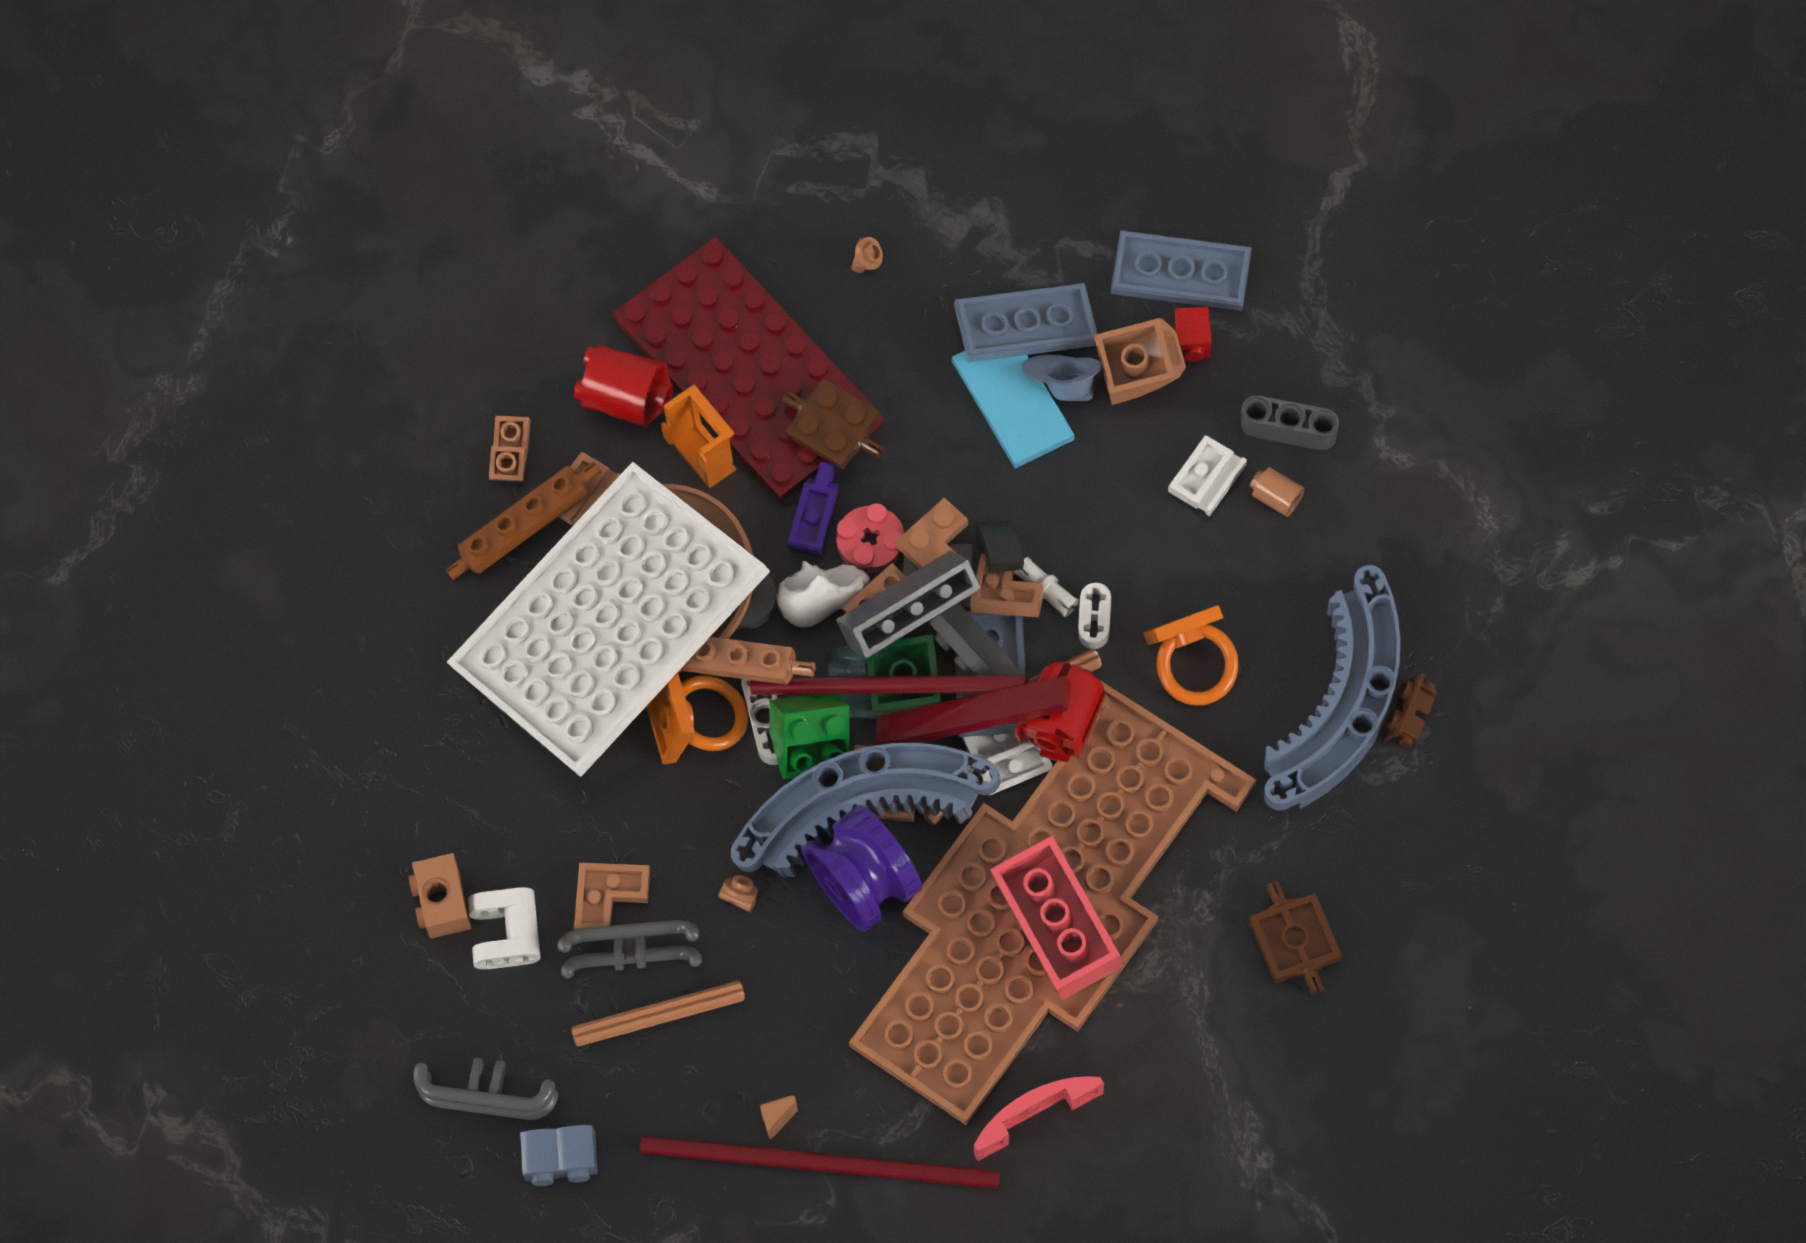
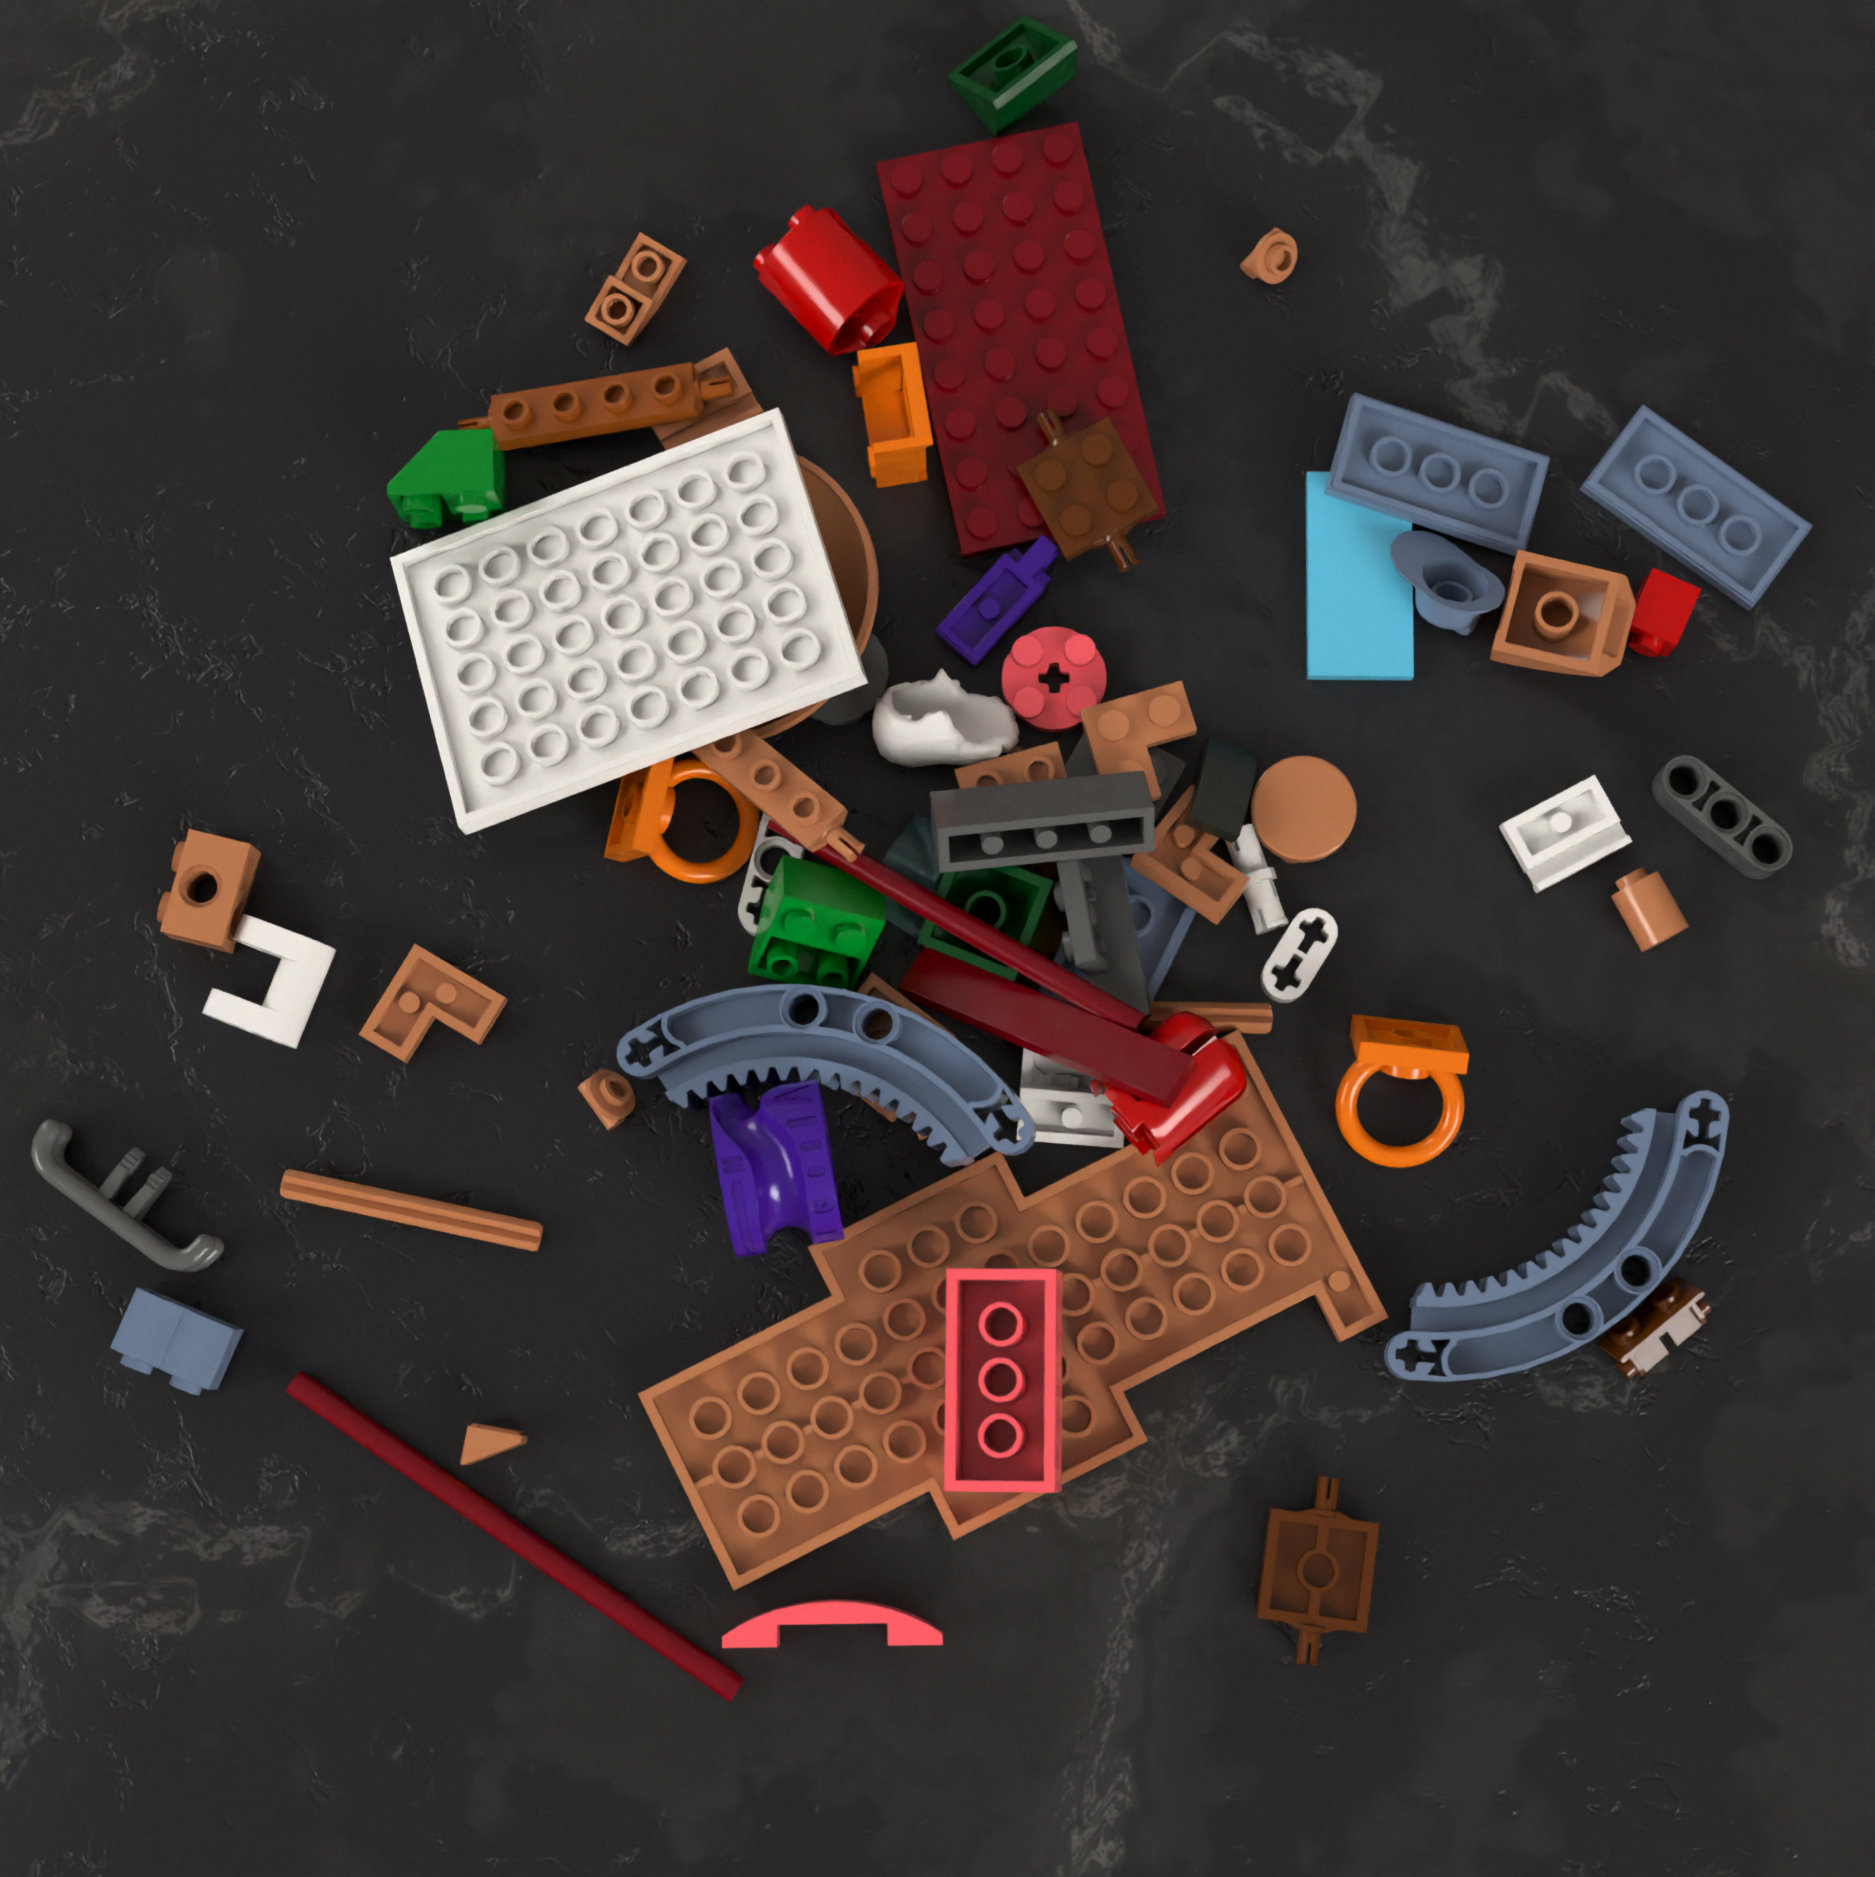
camera: 25 degrees right, 15 degrees up
(463, 597) = (452, 479): none -> green slope
(629, 945) = (418, 1096): dark grey piece -> none
(665, 227) = (1015, 72): none -> dark green slope
(1052, 536) = (1302, 809): none -> nougat tile

